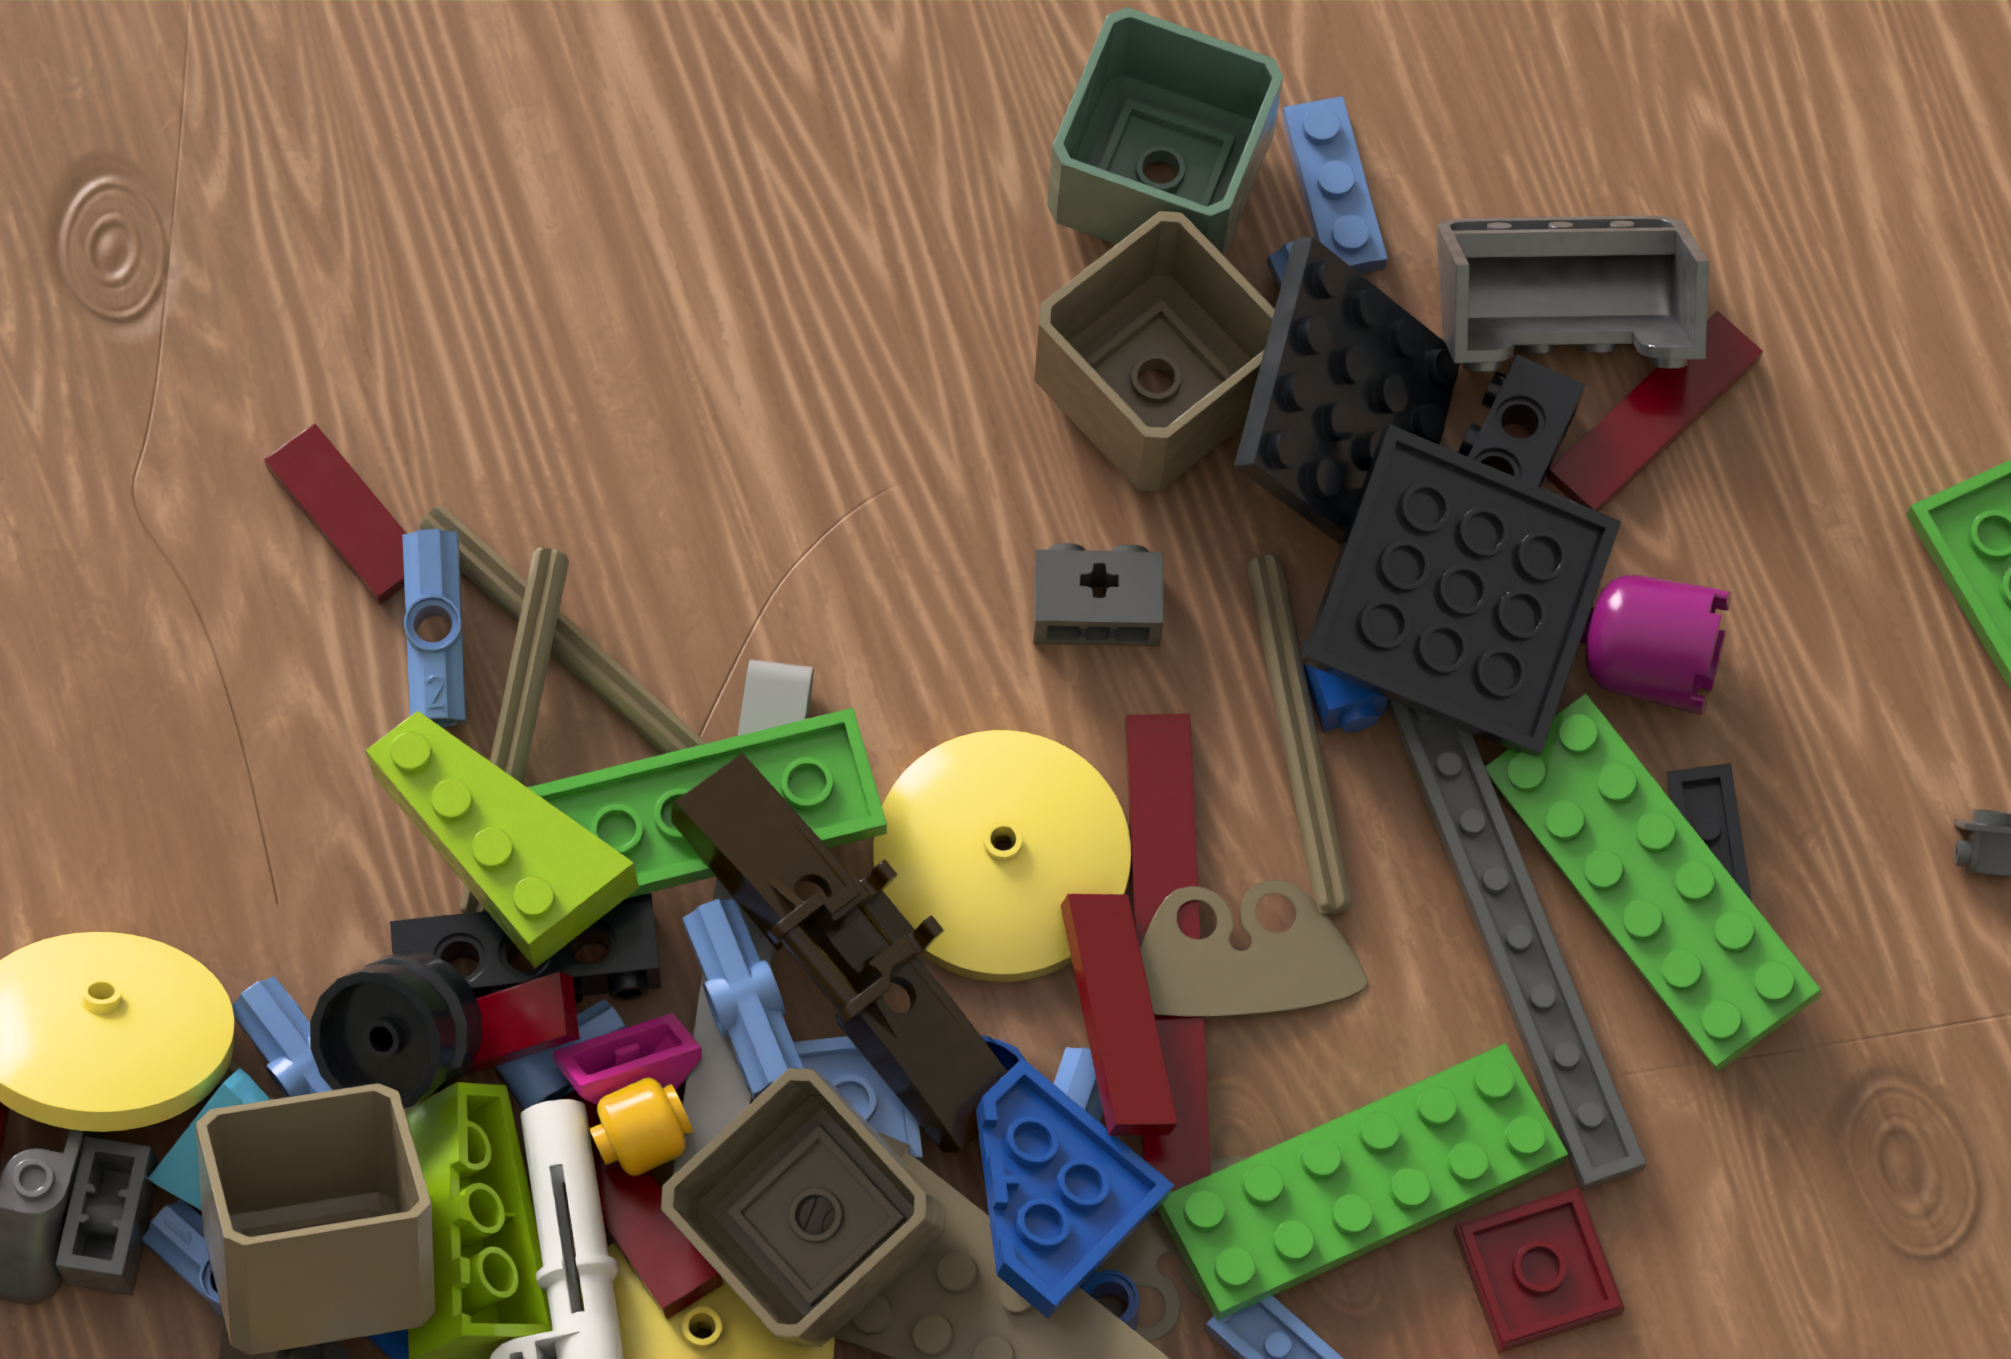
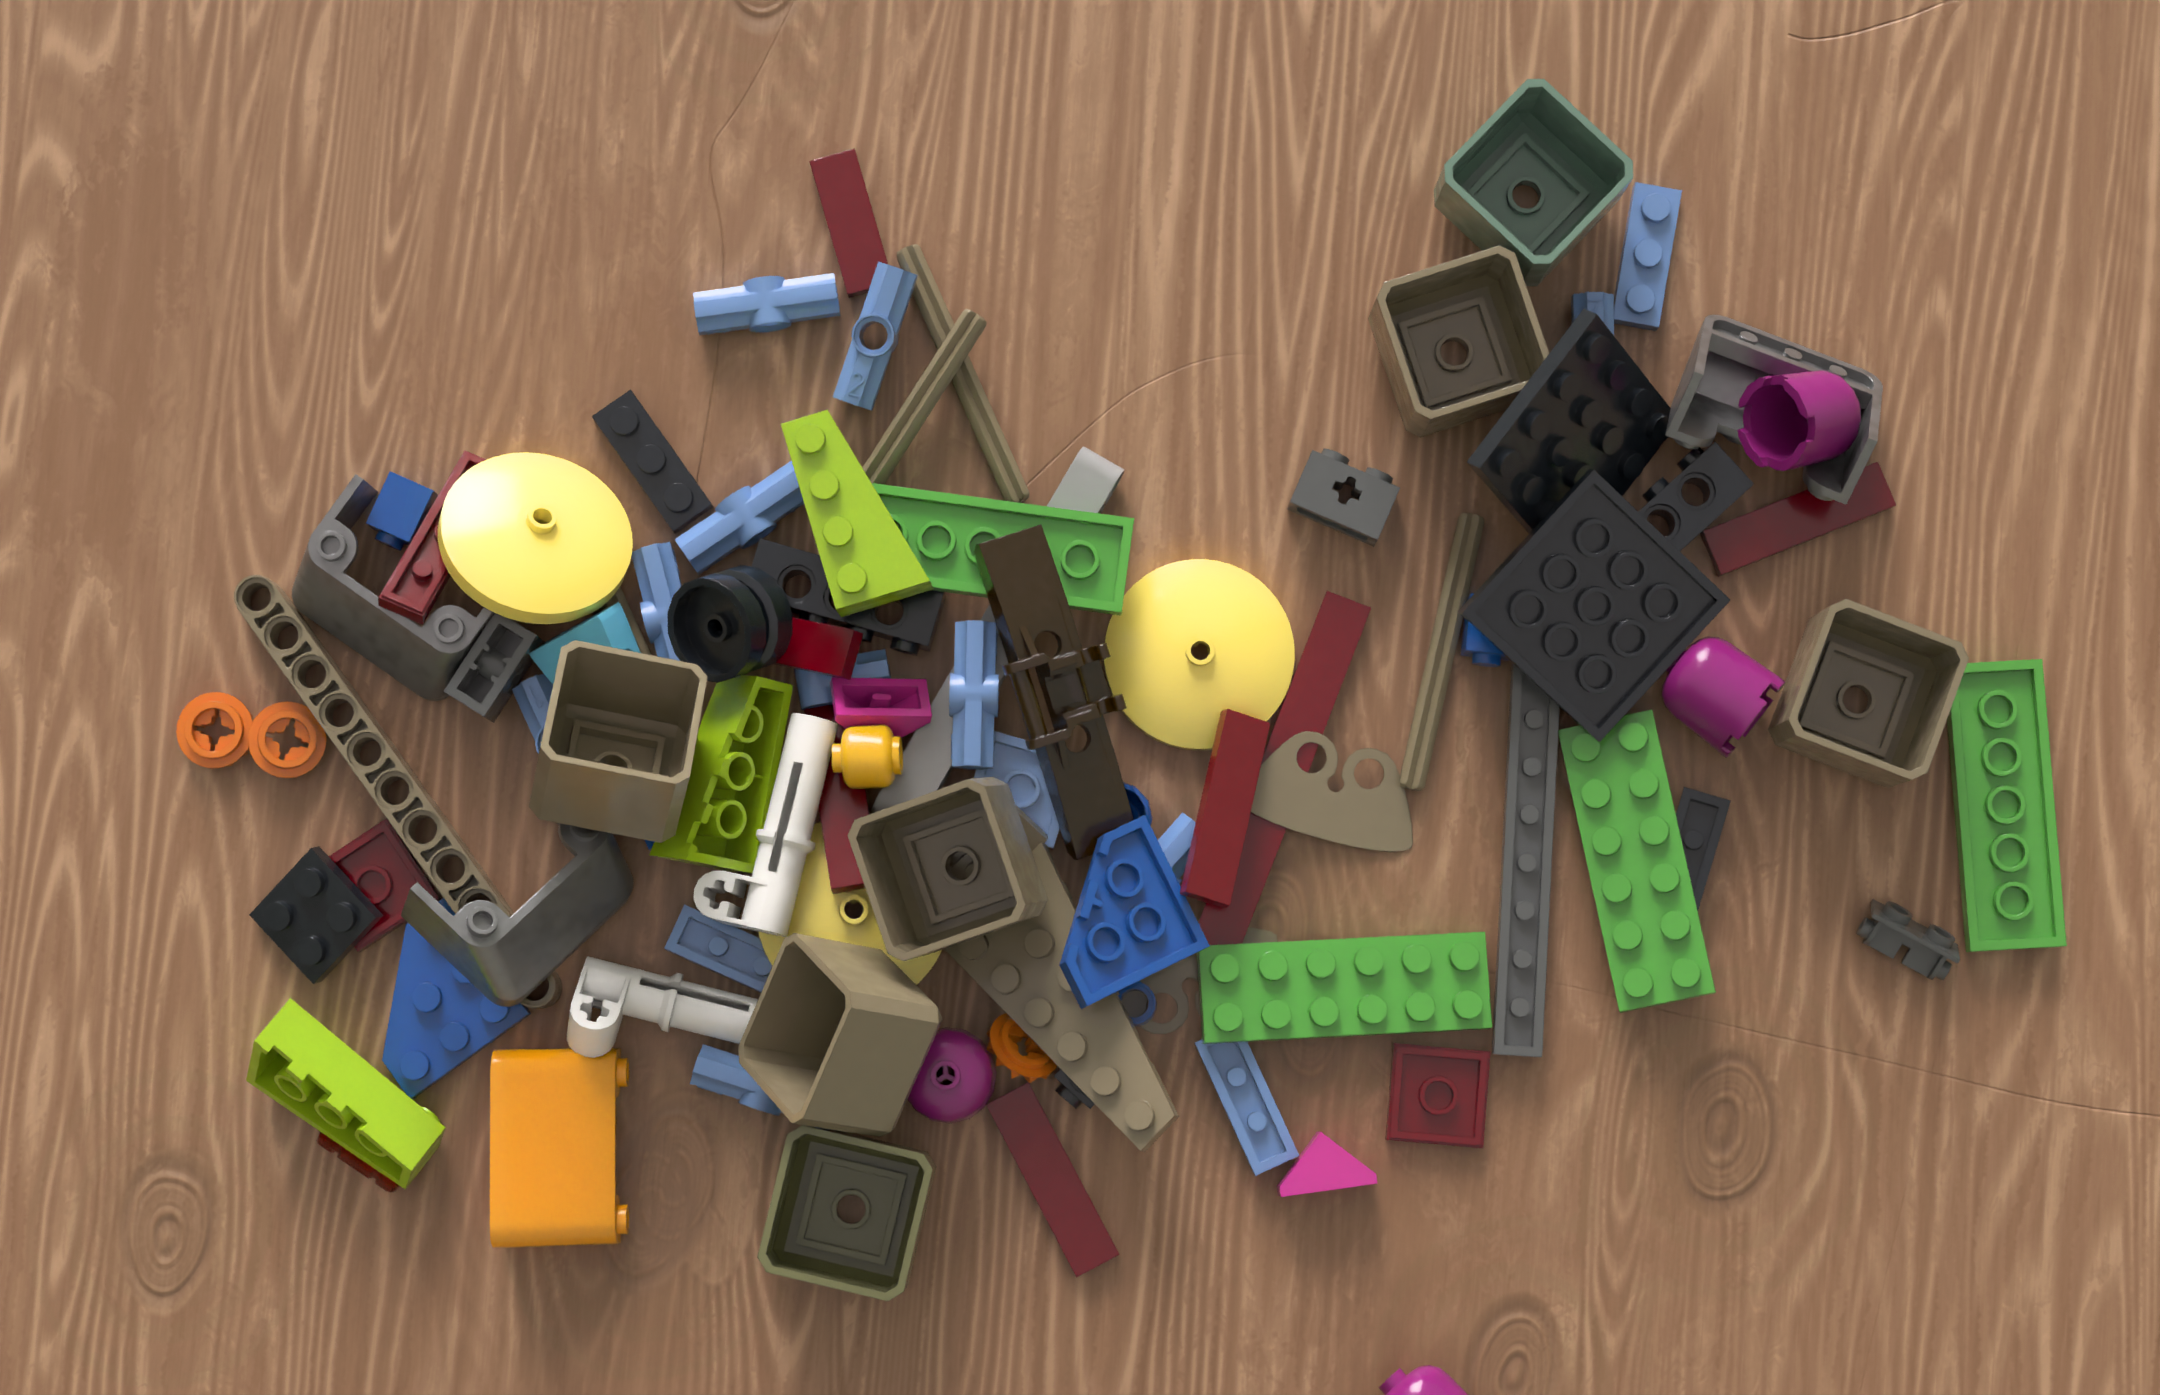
camera: 25 degrees right, 15 degrees up
(210, 893) = (652, 461): none -> black plate
(280, 646) = (766, 304): none -> medium blue piece
(358, 909) = (742, 519): none -> medium blue piece
(1602, 283) = (1798, 419): none -> magenta cylinder
(1842, 518) = (1907, 684): none -> dark tan plate

